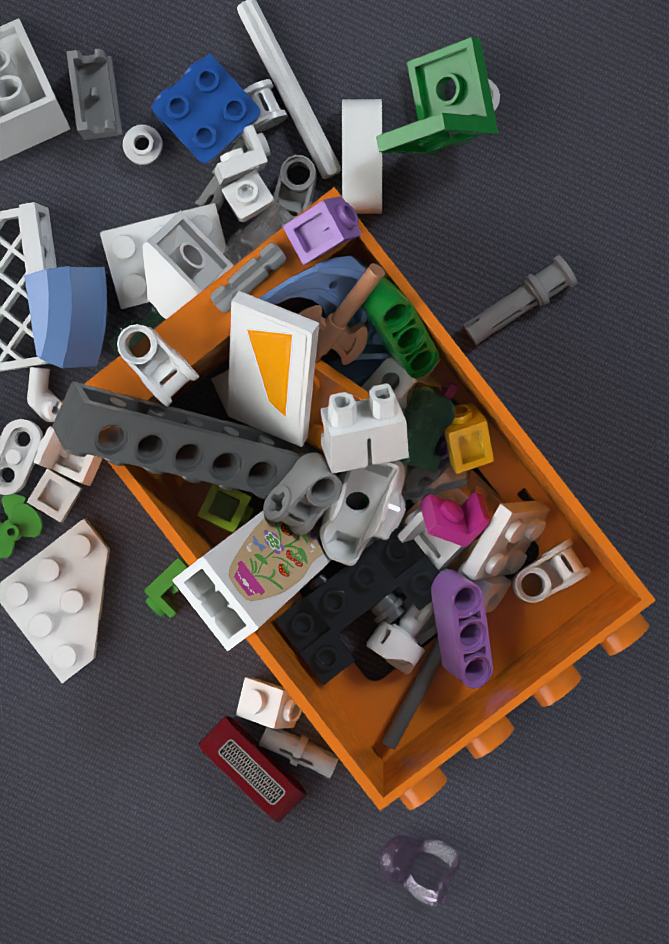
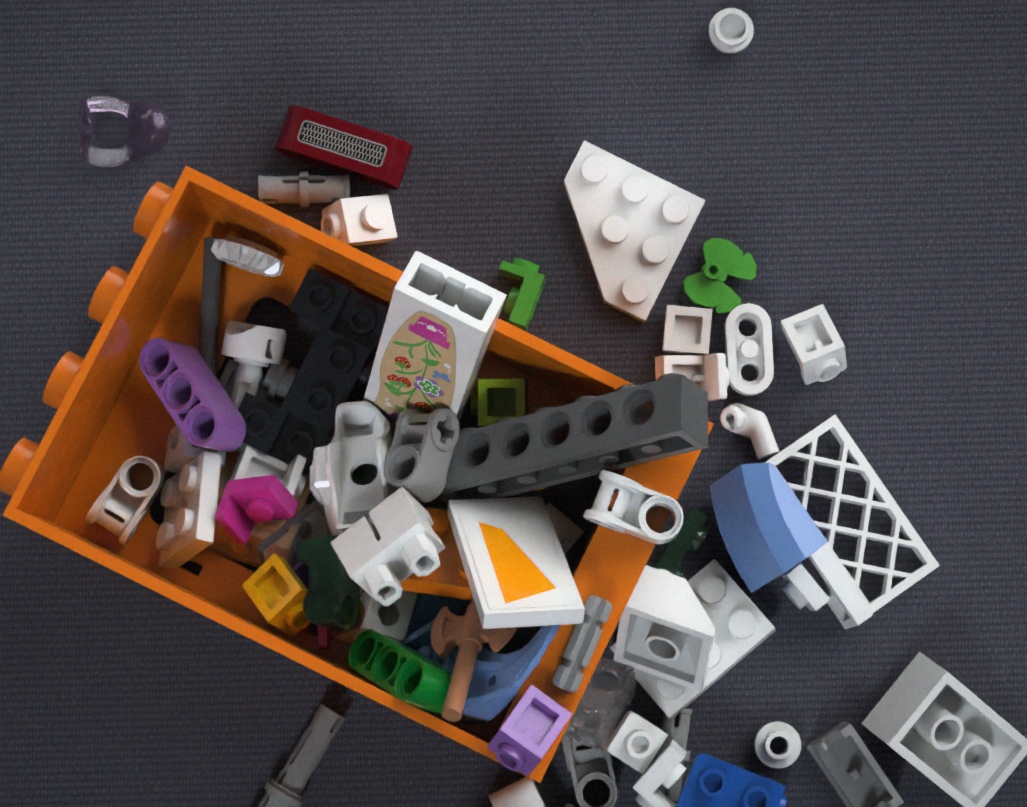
camera: 155 degrees right, 5 degrees down
(62, 249) = (804, 589): none -> white plate
(367, 718) = (247, 256): none -> white gear

